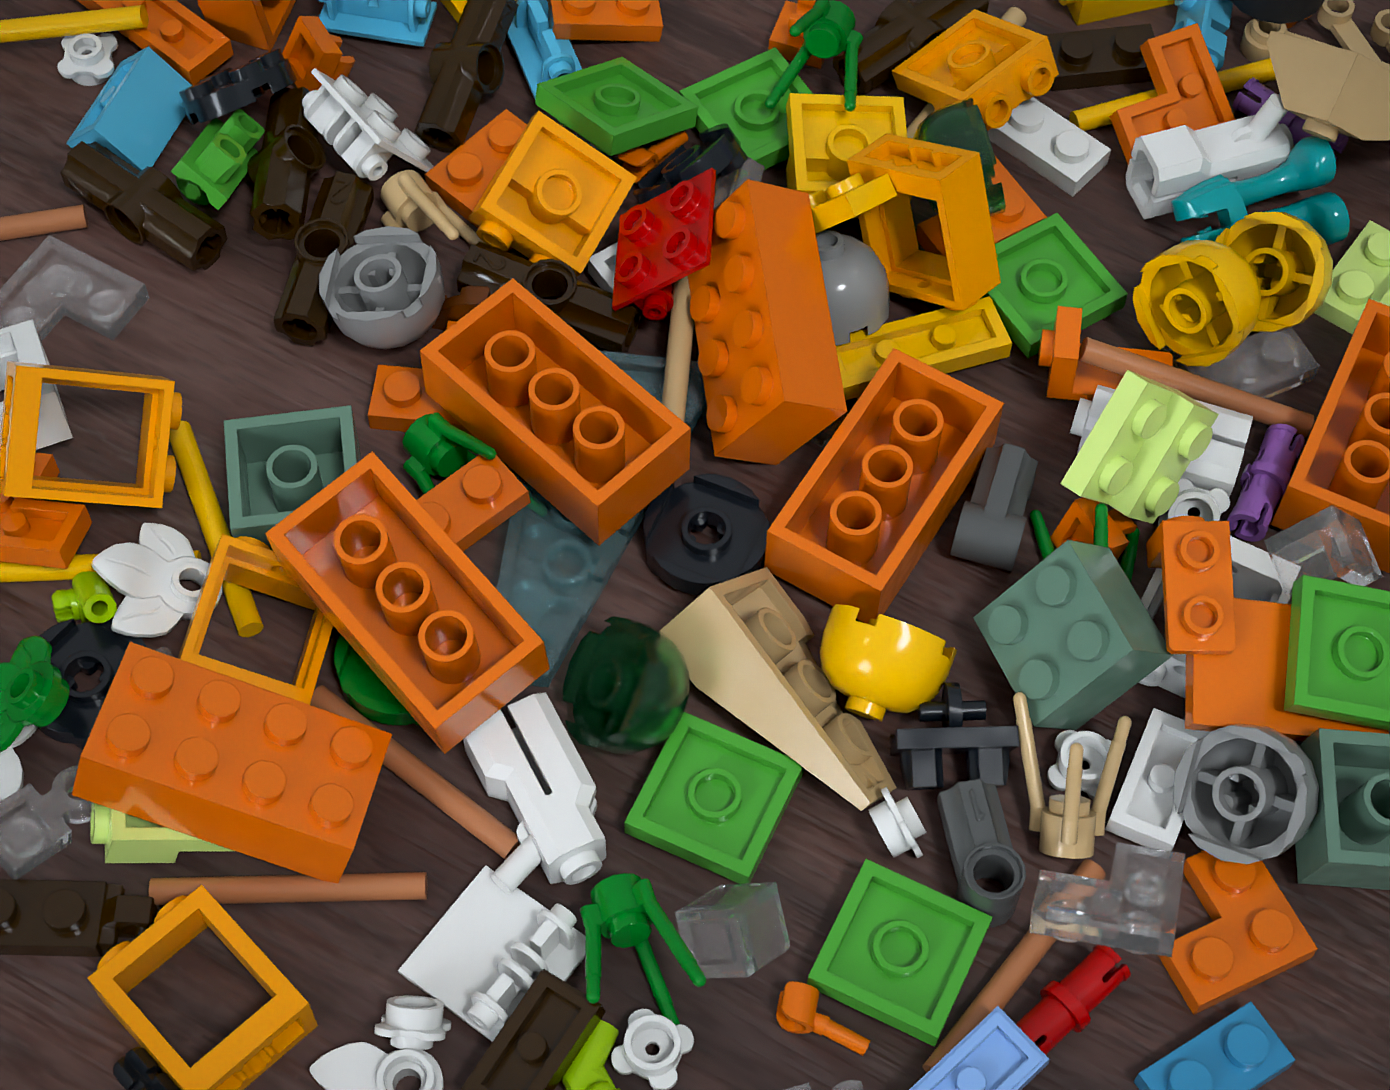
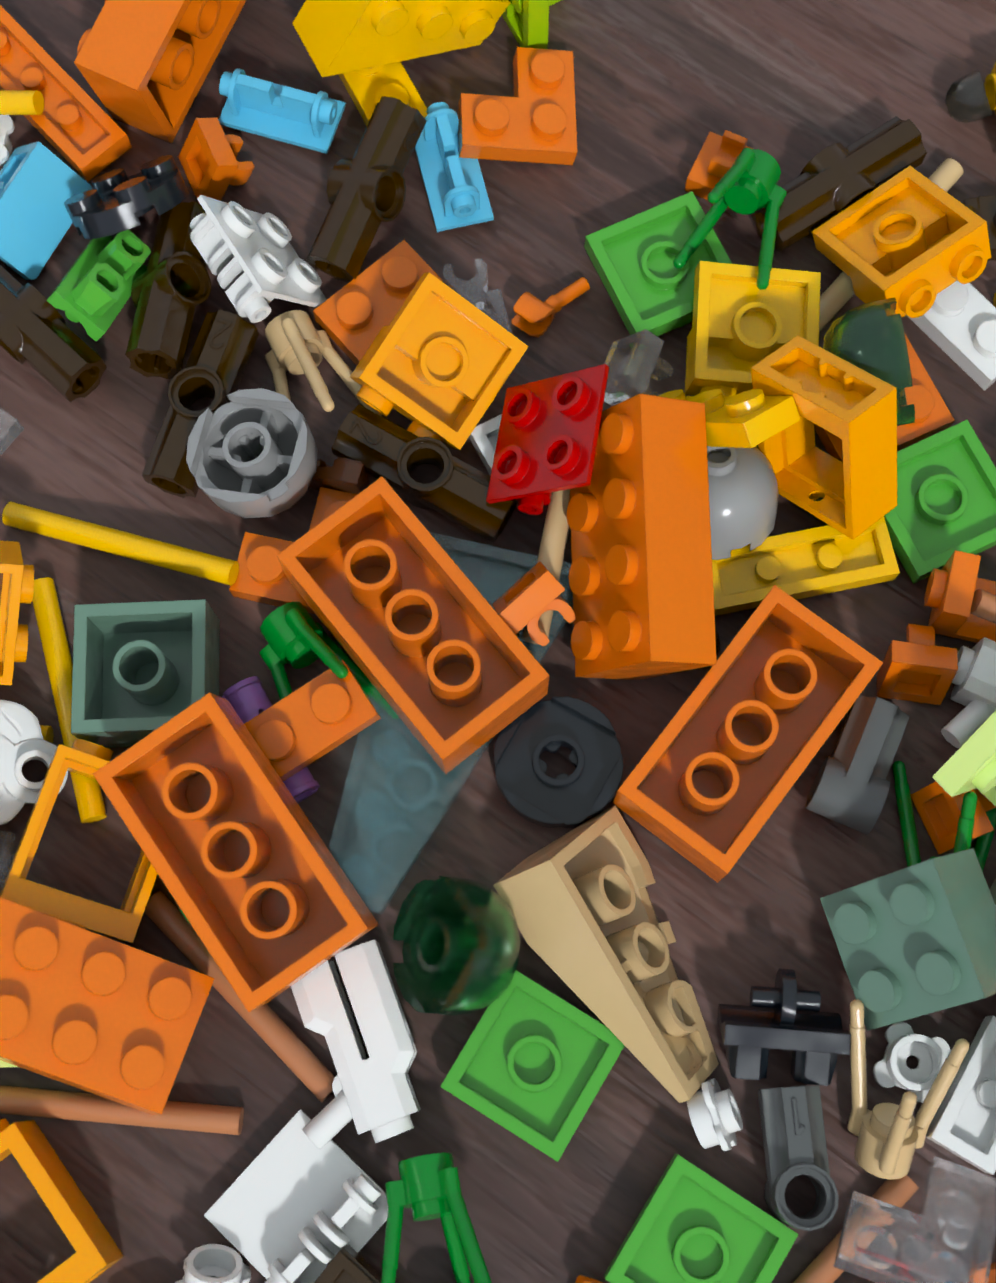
camera: 10 degrees right, 15 degrees up
(262, 384) = (121, 543): none -> yellow bar
(616, 106) = (517, 251): bright green plate -> none
(668, 376) = (529, 599): none -> orange tile
(720, 151) = (585, 336): black plate -> none
(734, 929) = (536, 1214): clear panel -> none
(882, 663) = (720, 938): yellow cylinder -> none
(1041, 422) = (917, 668): none -> orange tile

